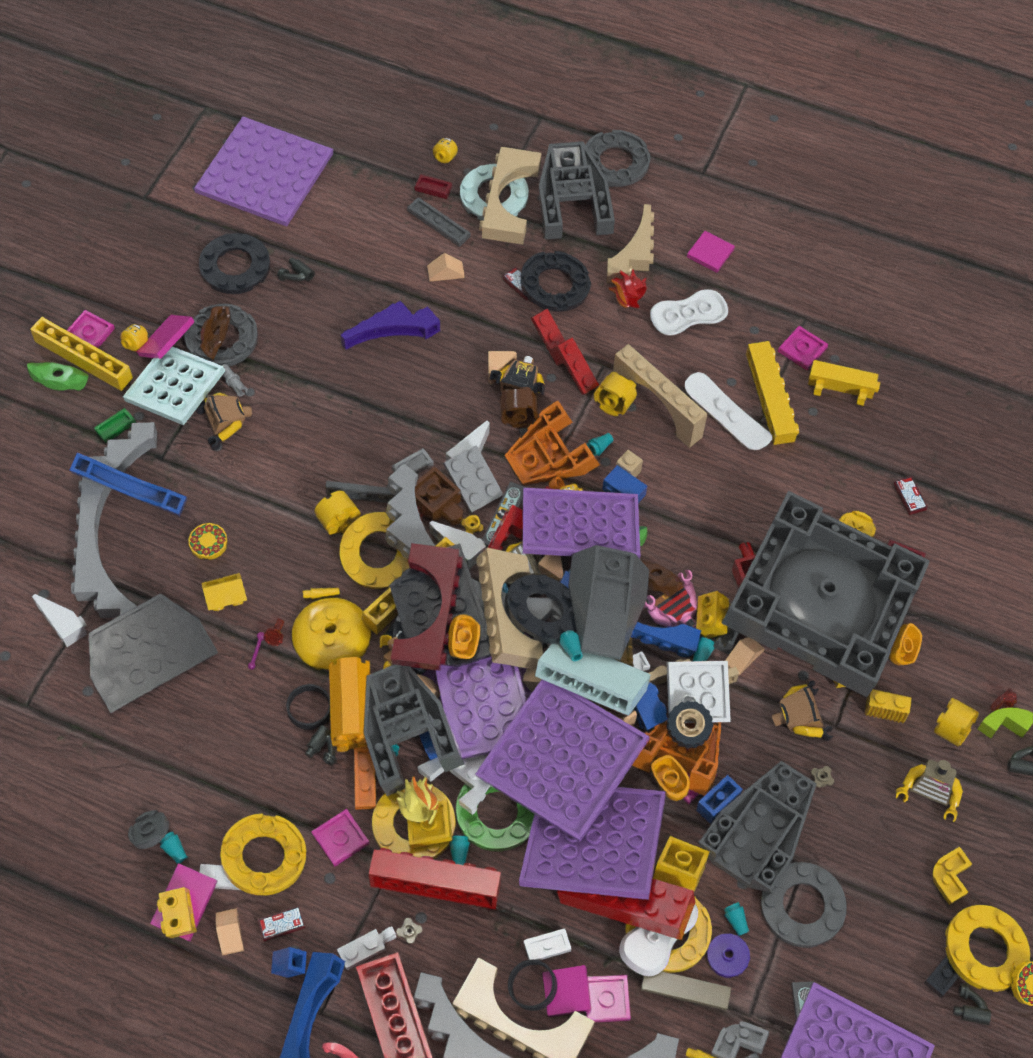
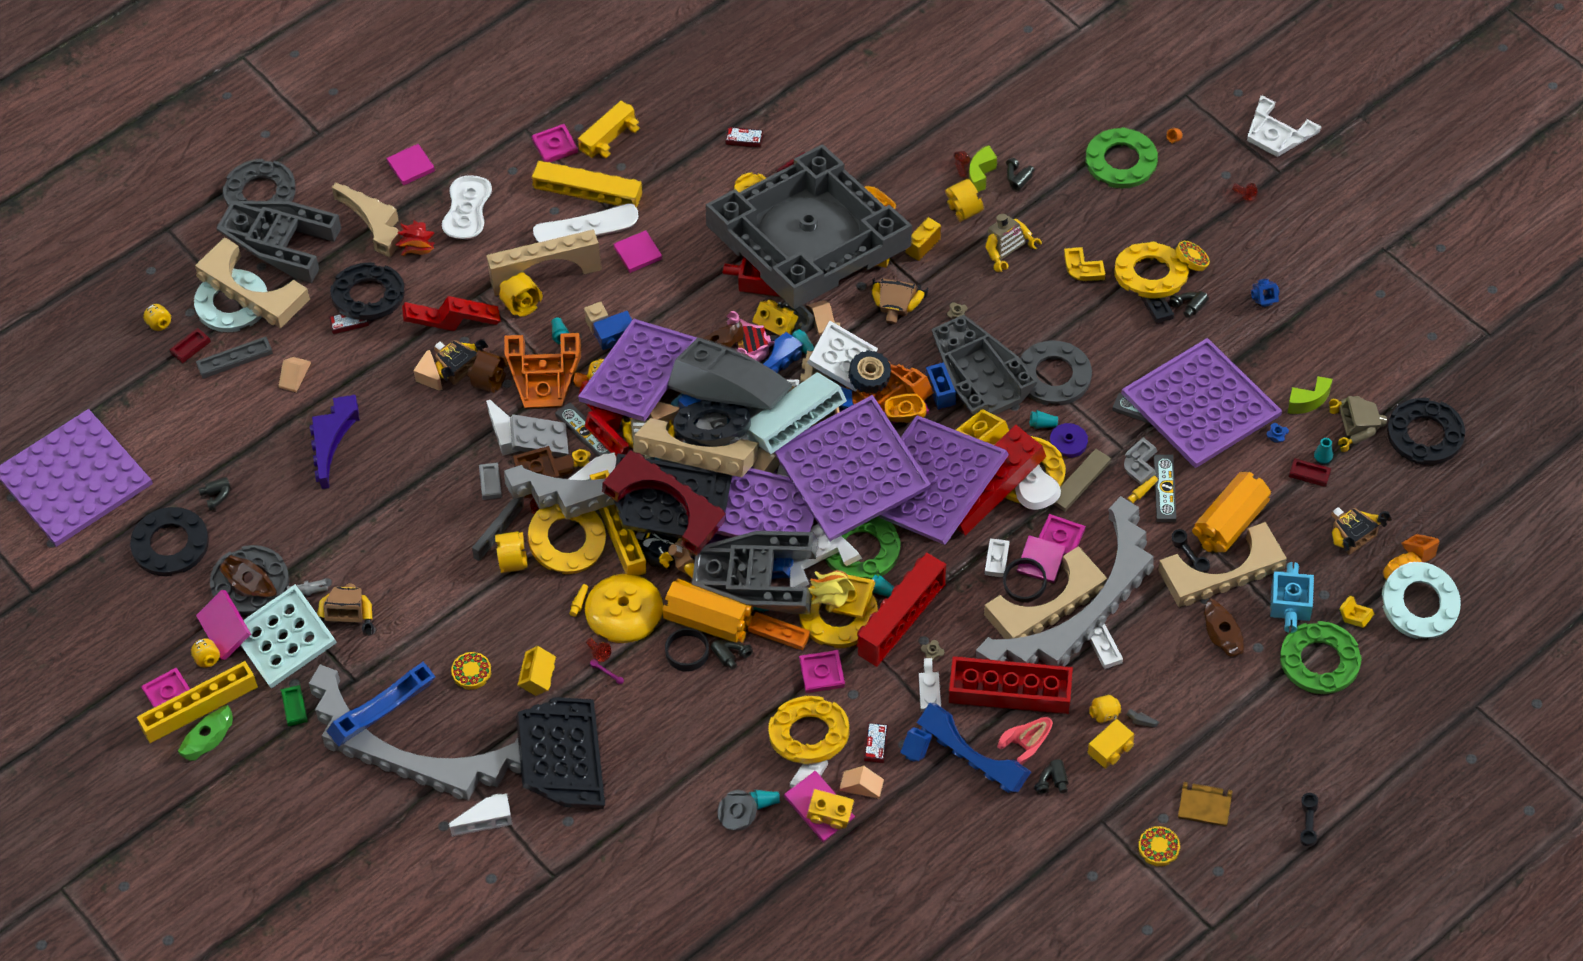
camera: 60 degrees left, 5 degrees down
(463, 637) = (708, 485): light orange piece -> none
(571, 644) = (761, 412): teal cone -> none
(725, 467) = (637, 251): none -> dark pink tile

